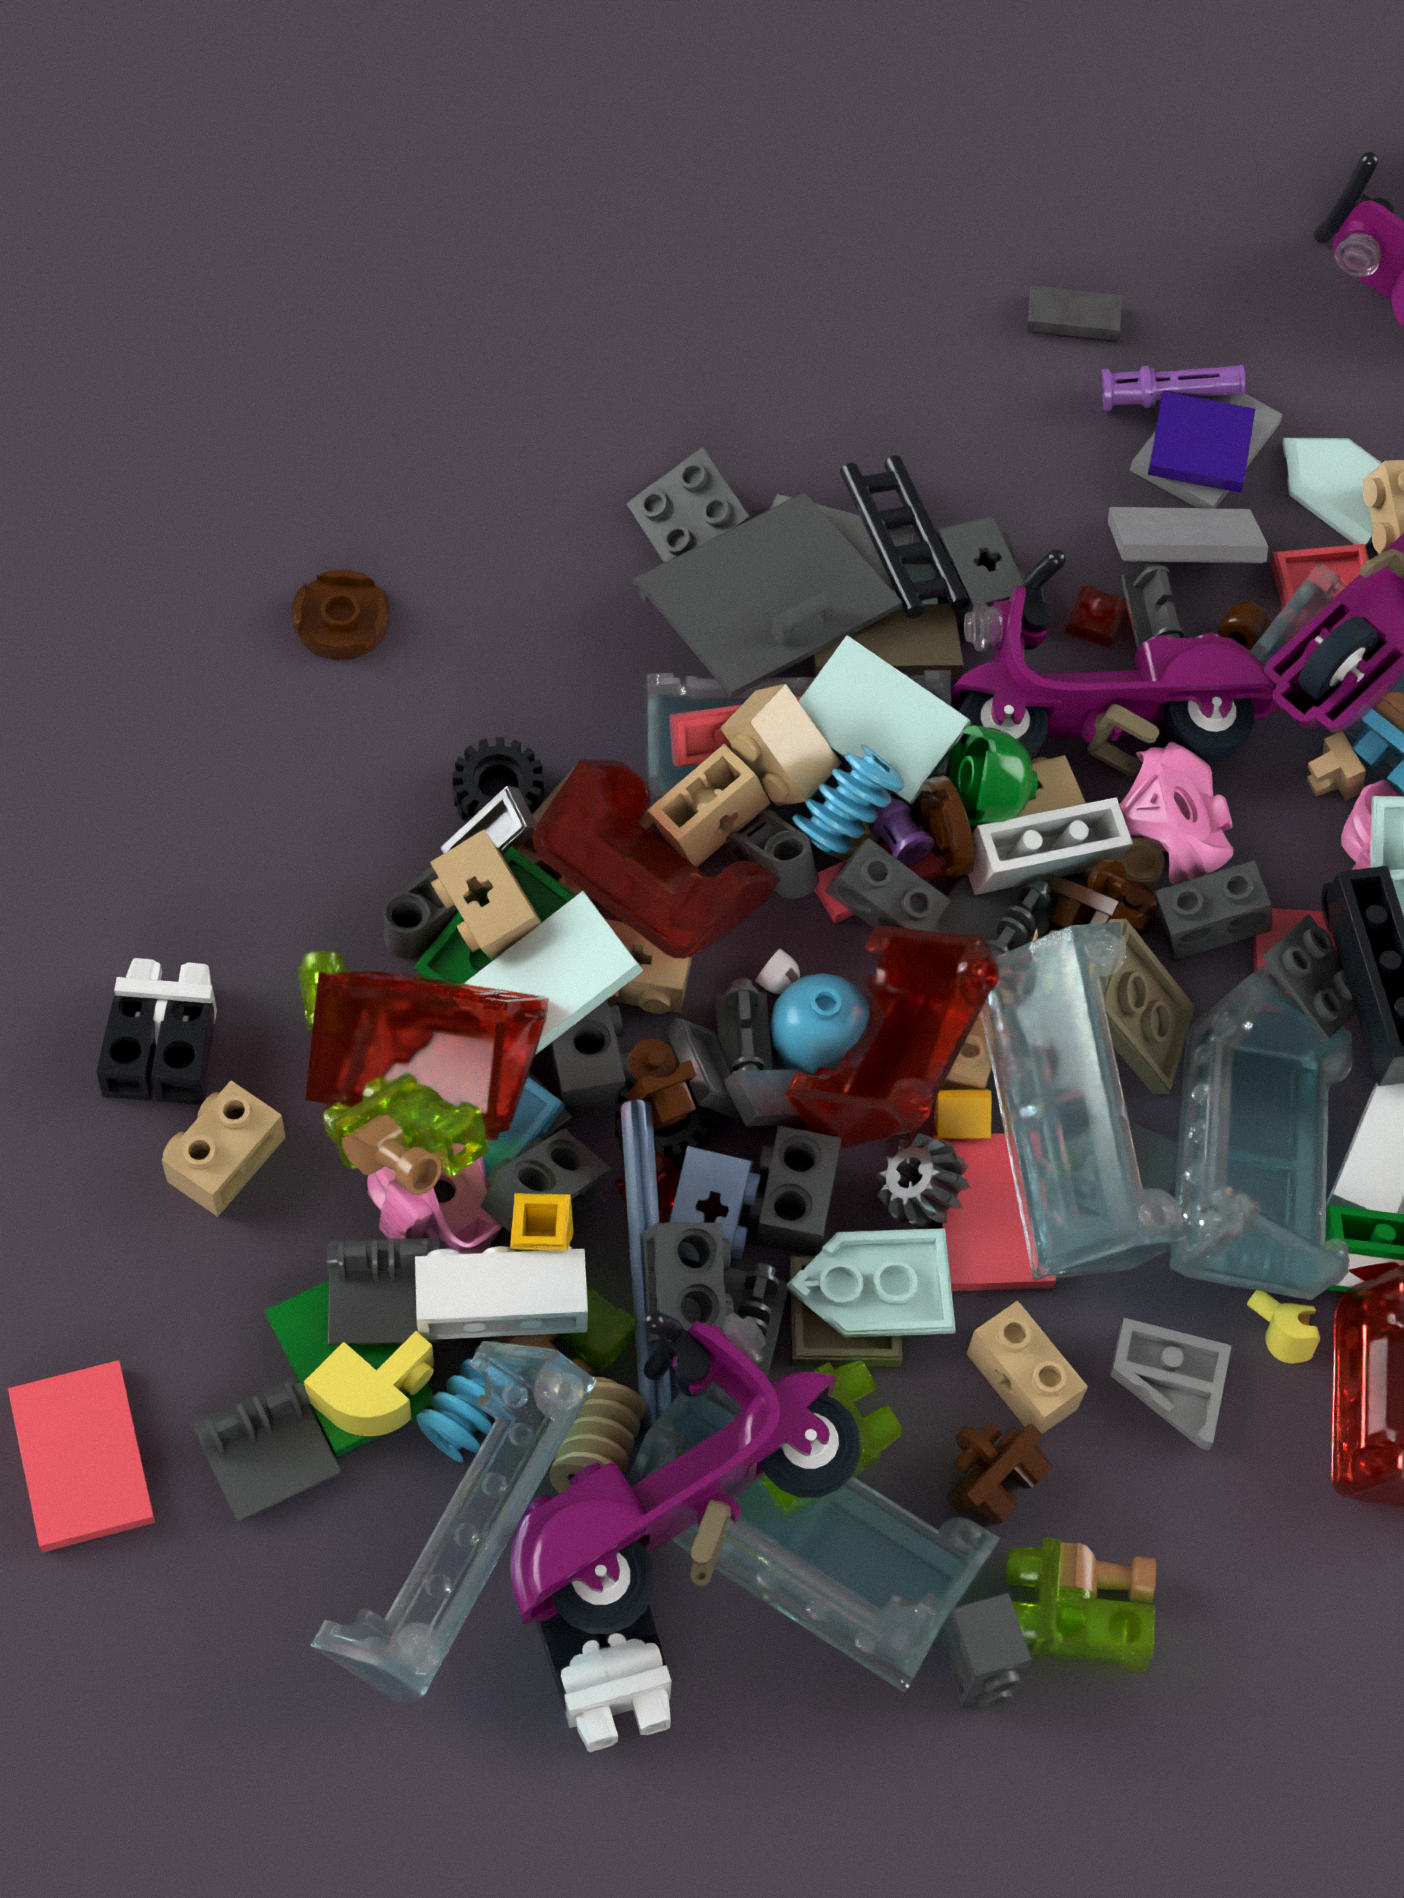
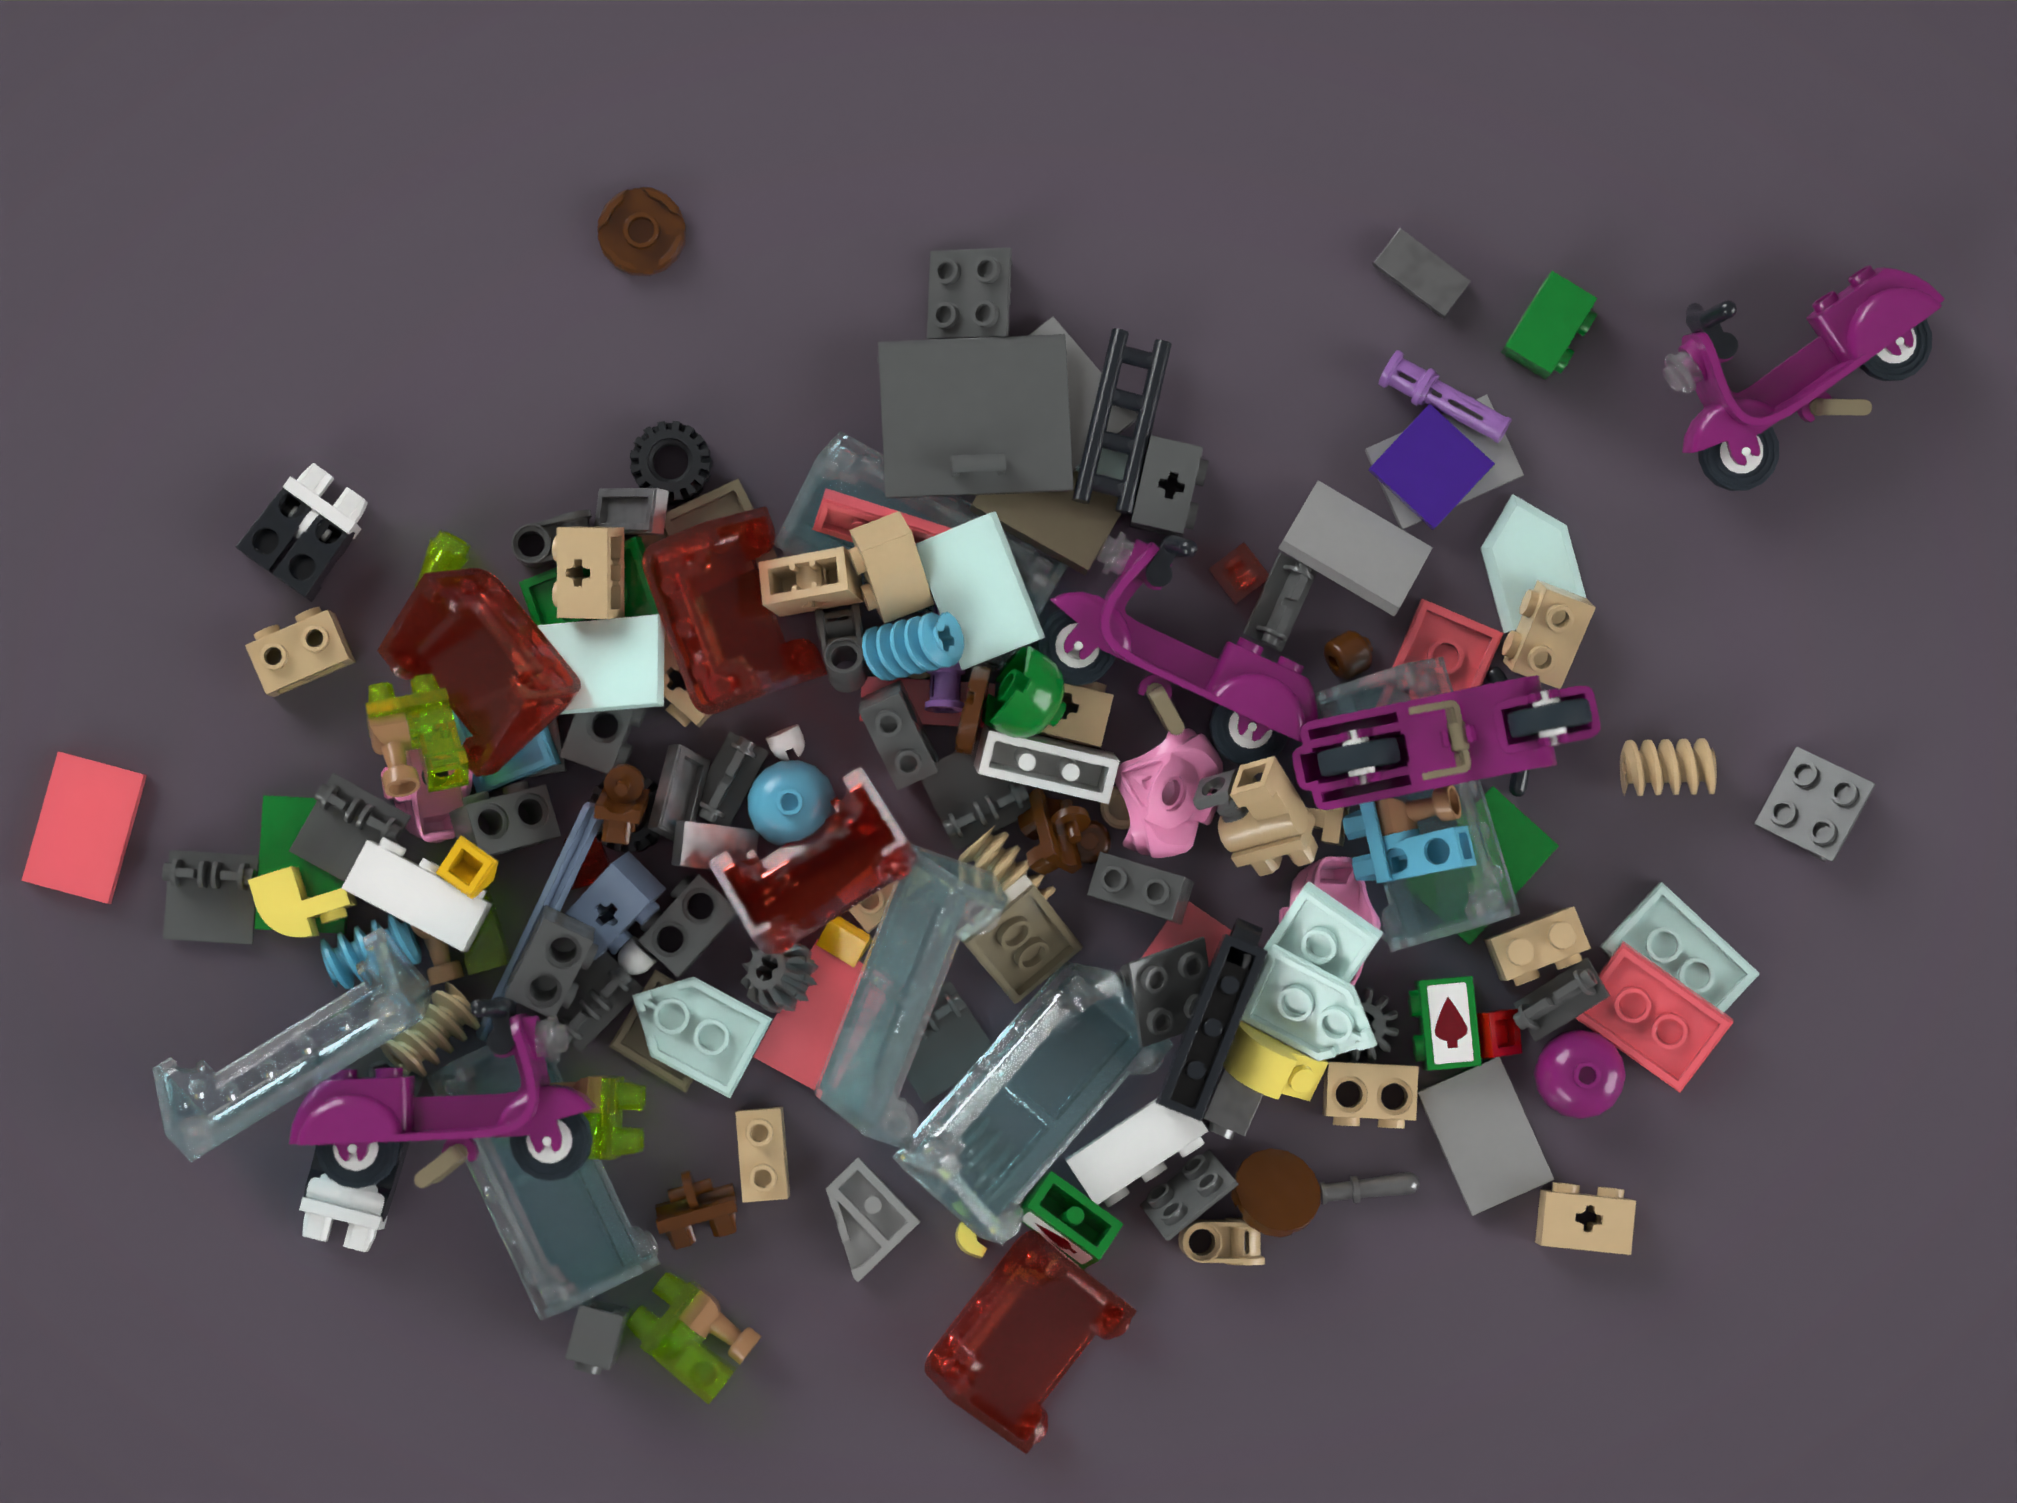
camera: 30 degrees right, 25 degrees up
(763, 1249) = (635, 957): none -> white hinge
(1215, 293) = (1550, 325): none -> green brick
(1291, 792) = (1260, 817): none -> tan hips

